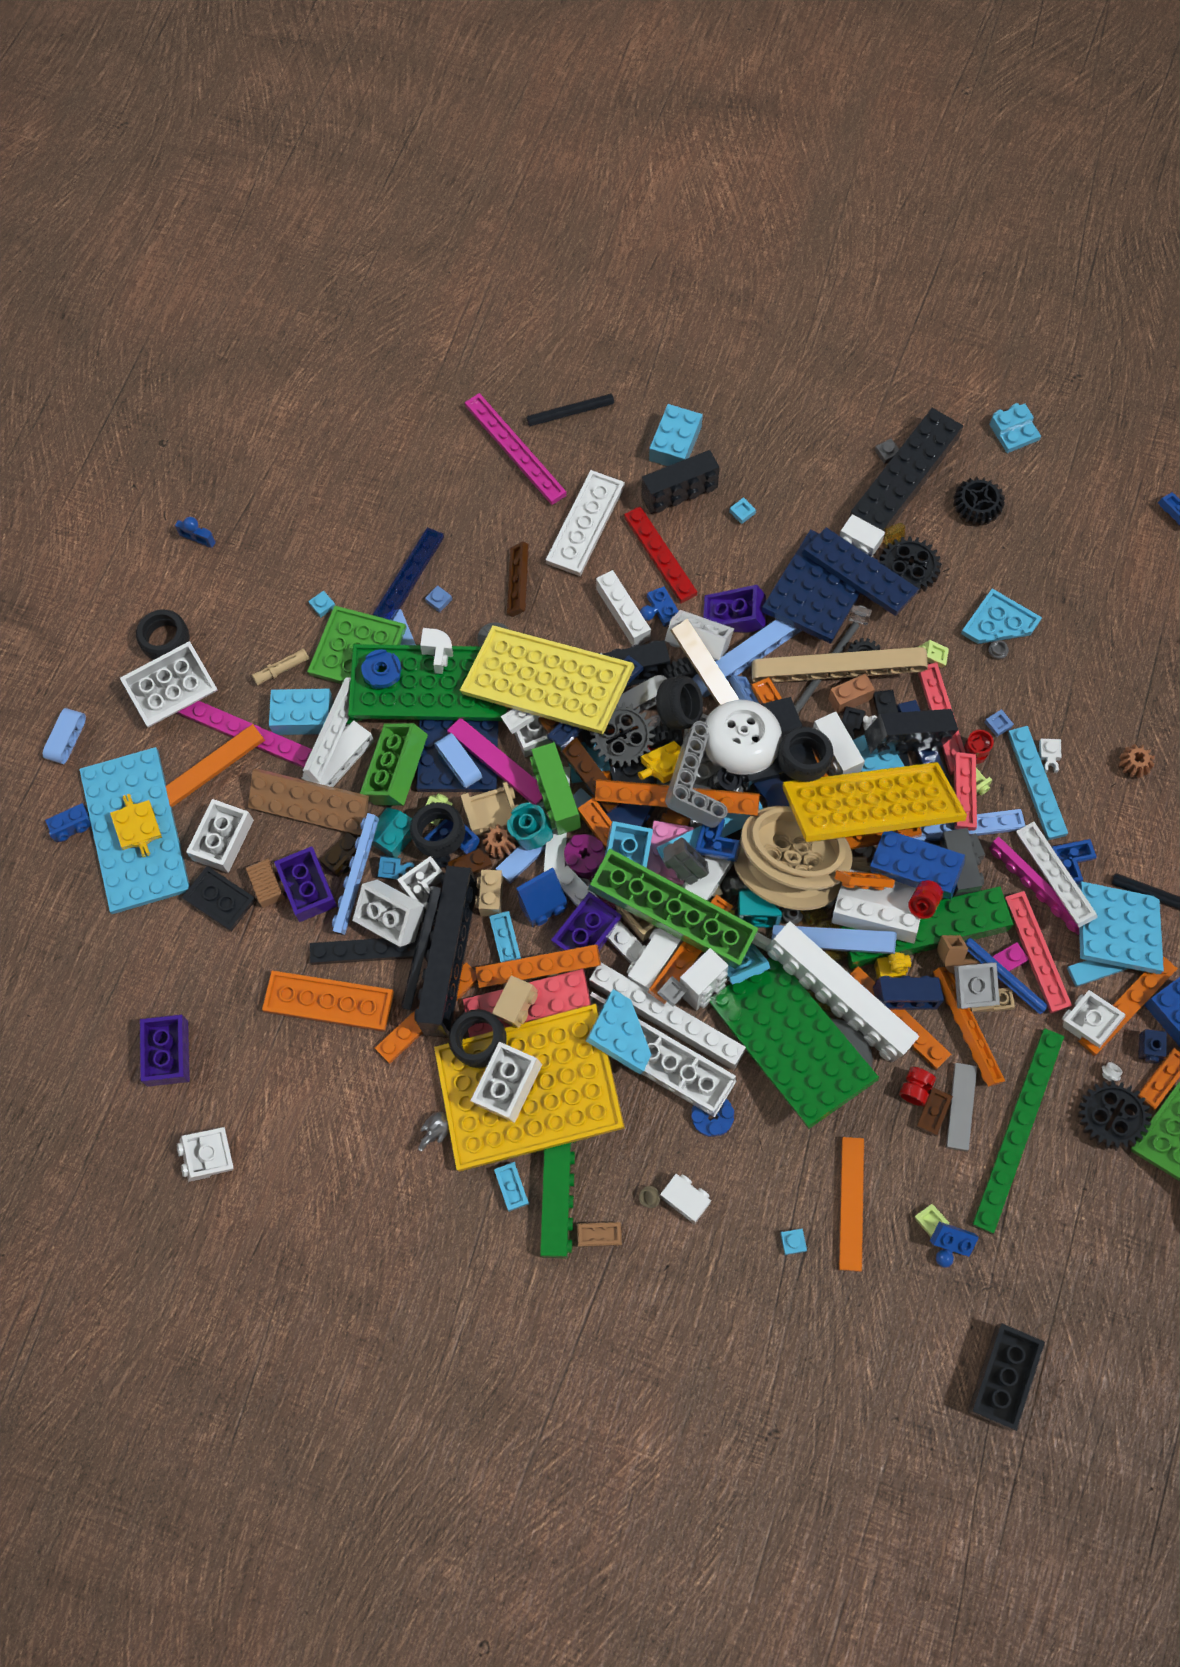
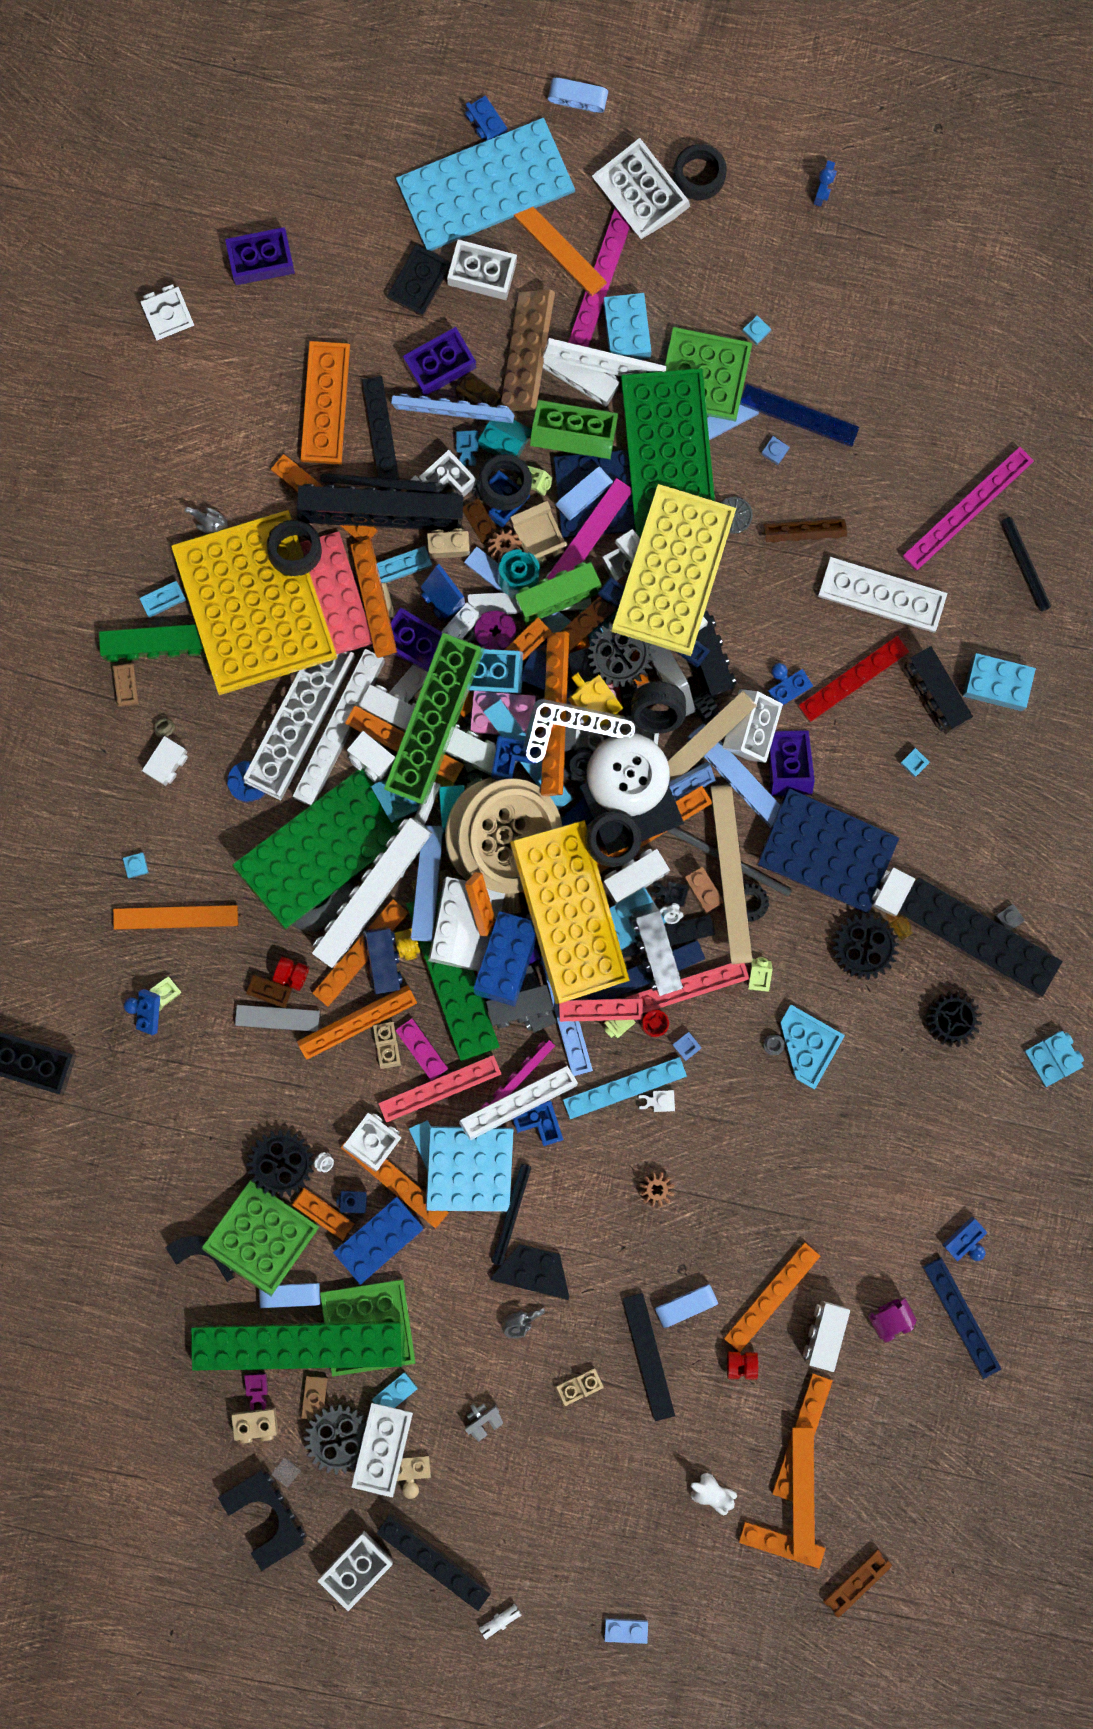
camera: 75 degrees right, 15 degrees up
(136, 825) = (485, 185): yellow plate -> none
(266, 883) = (439, 321): medium nougat brick -> none
(275, 669) = (671, 291): tan pin -> none
(381, 679) = (677, 390): blue plate -> none
(388, 913) = (413, 446): white brick -> none
(439, 644) = (706, 457): white brick -> none
(506, 1082) = (251, 579): white brick -> none
(515, 1001) = (331, 579): tan brick -> none
(620, 1033) = (310, 682): medium azure plate -> none
(623, 608) = (779, 644): white brick -> none
(672, 991) = (353, 726): light grey plate -> none
(685, 861) = (485, 727): flat silver brick -> none
(860, 571) = (846, 891): dark blue plate -> none
(860, 615) = (800, 896): clear plate -> none
(925, 899) = (464, 964): red wheel -> none
(954, 952) = (423, 1006): medium nougat brick -> none
(977, 985) = (392, 1025): light grey tile -> none
(1007, 977) = (408, 1055): blue axle -> none
(1018, 1131) = (260, 1073): green plate -> none

